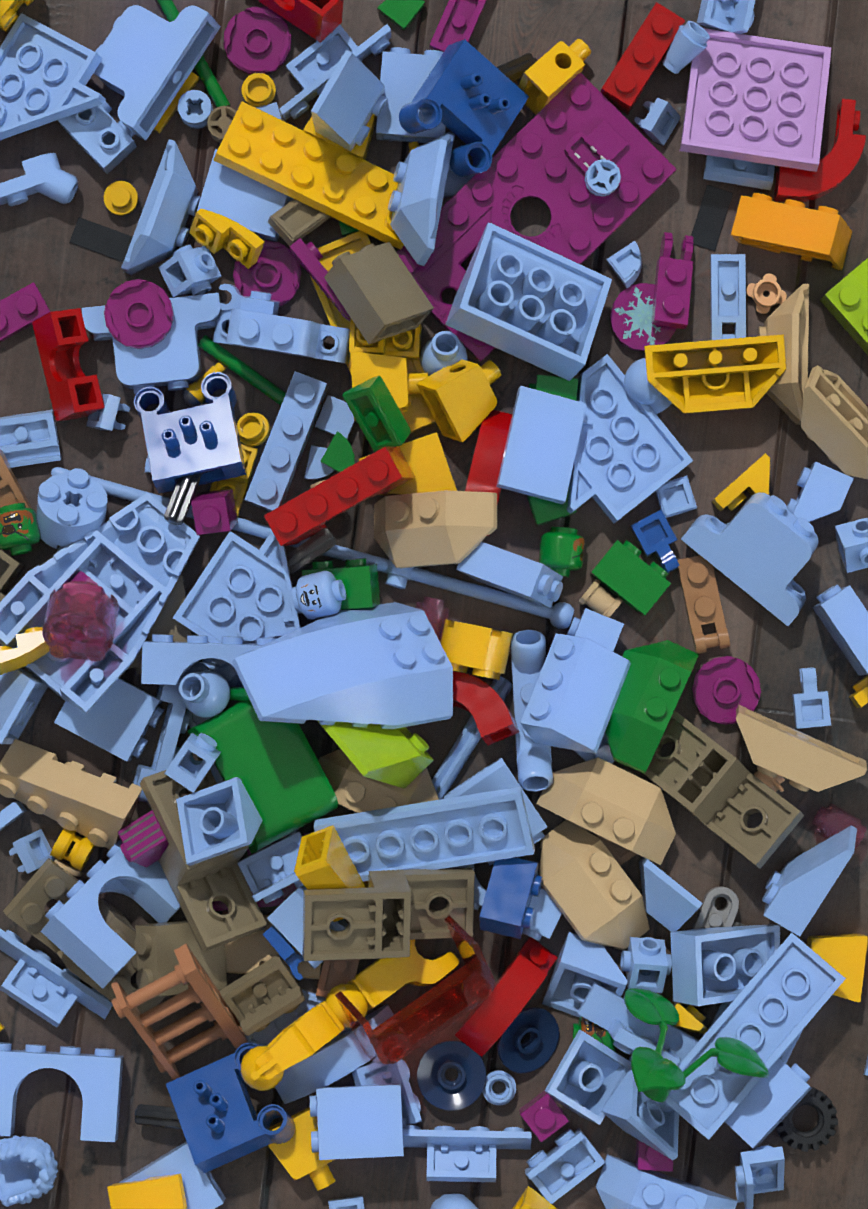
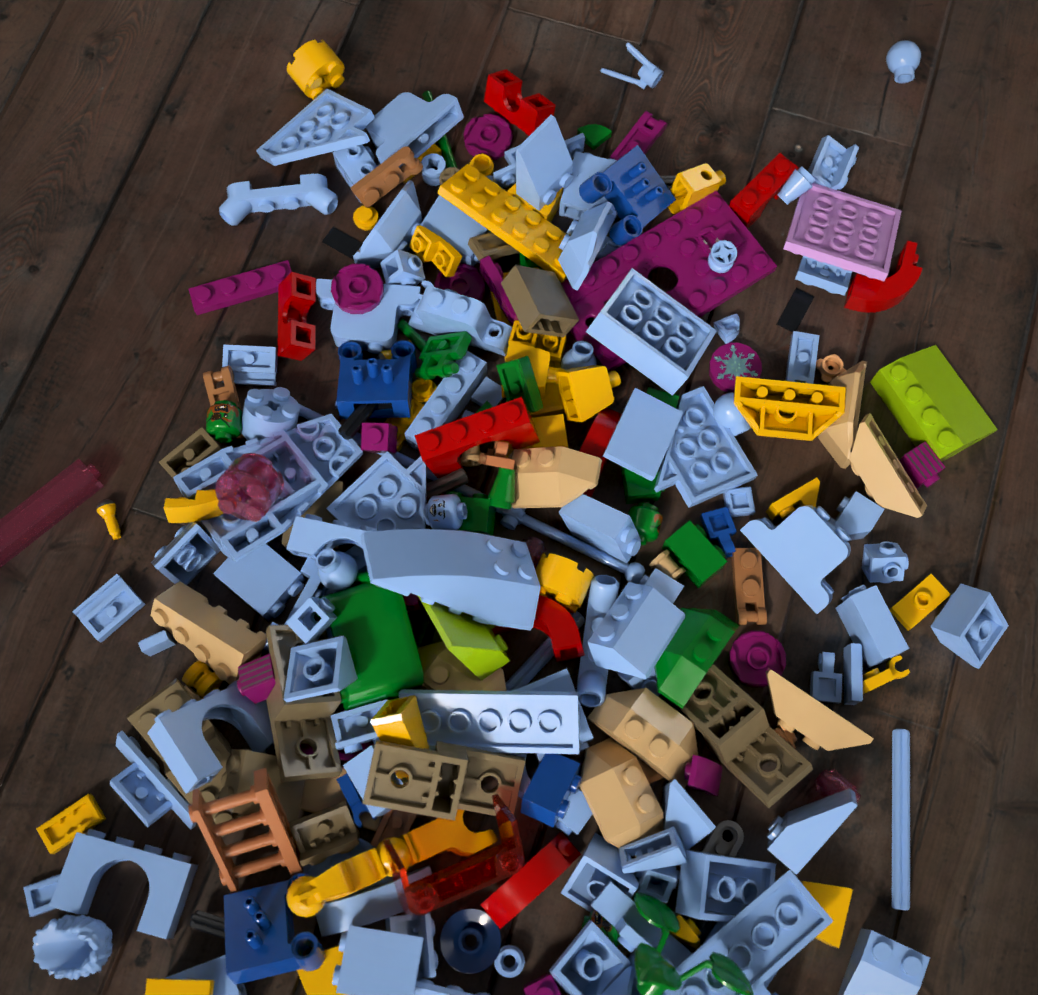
camera: 10 degrees right, 15 degrees down
(32, 851) = (167, 671): light blue tile -> none
(105, 418) = (315, 359): light blue tile -> none
(139, 145) = (387, 176): none -> medium nougat plate
(272, 376) = (442, 350): none -> green plate
(368, 517) = (497, 456): none -> nougat plate
(383, 553) = (503, 489): none -> green cone
(529, 1040) = (549, 929): dark blue dish -> none
(648, 937) = (663, 850): none -> light blue slope
(659, 121) = (768, 234): light blue tile -> none
(673, 284) = (761, 346): magenta hinge -> none
(682, 844) = (703, 775): none -> magenta slope
(792, 229) = (858, 322): light orange wedge -> none
(841, 688) = (853, 674): none -> light blue tile

